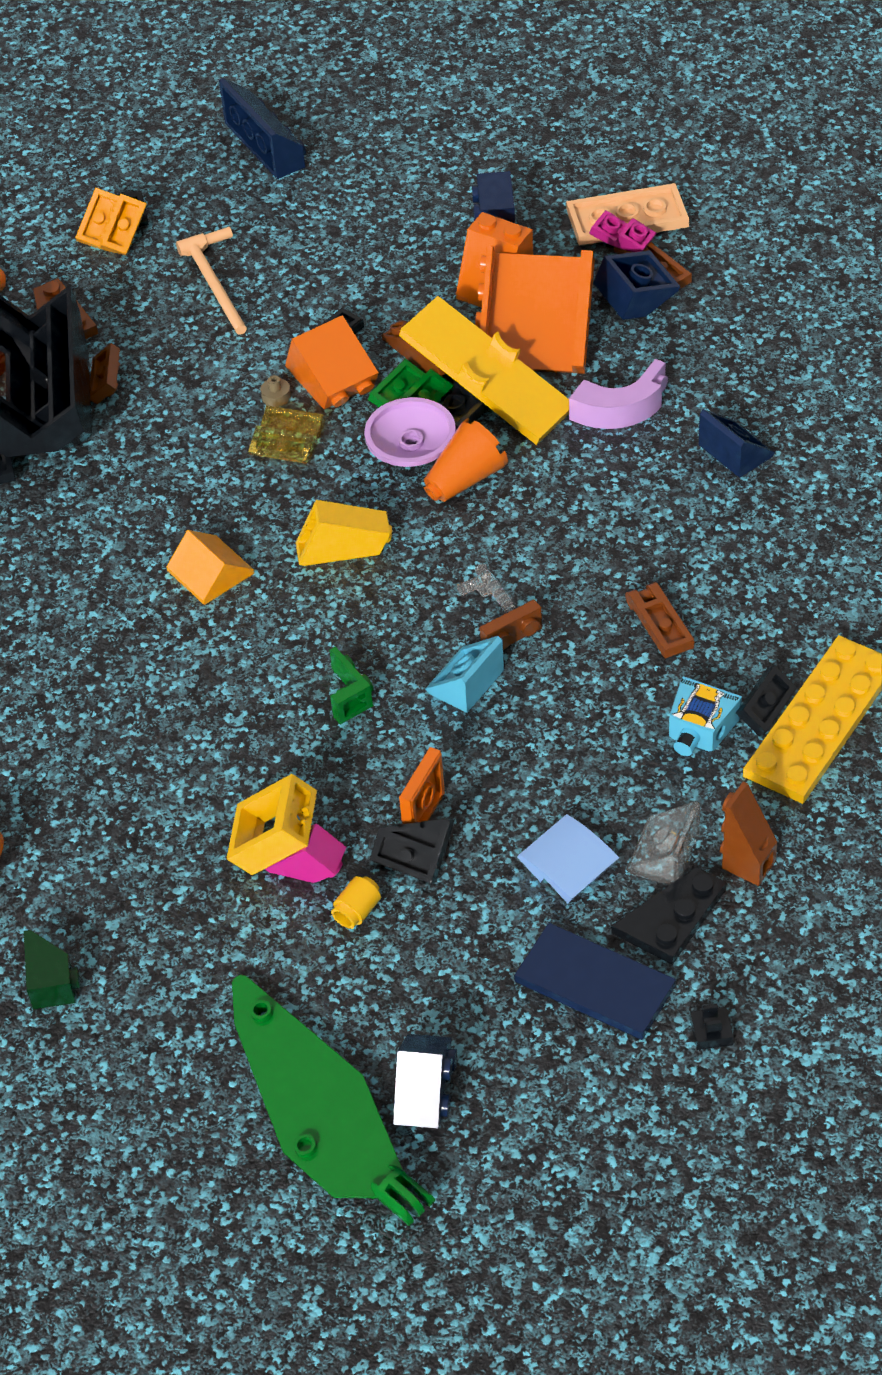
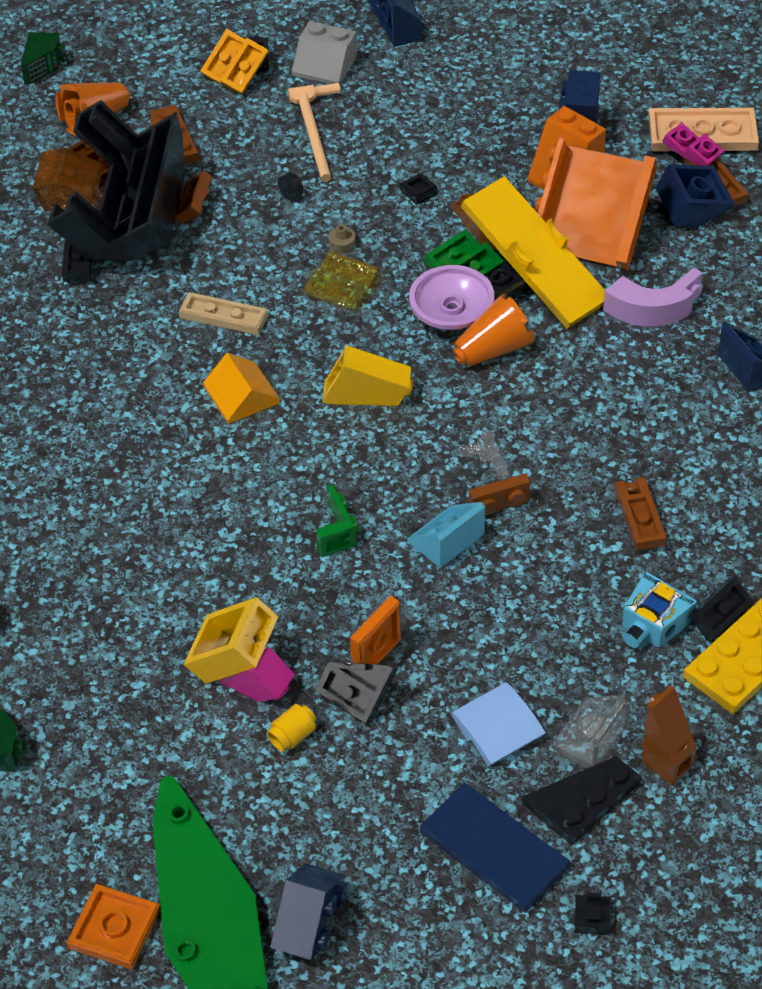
camera: 10 degrees right, 0 degrees up
(169, 490) = (223, 313): none -> tan tile
(206, 197) = (324, 53): none -> light grey slope
(206, 344) = (290, 186): none -> black tile
(222, 1137) = (113, 926): none -> orange tile
(331, 363) = (397, 222): orange slope -> none

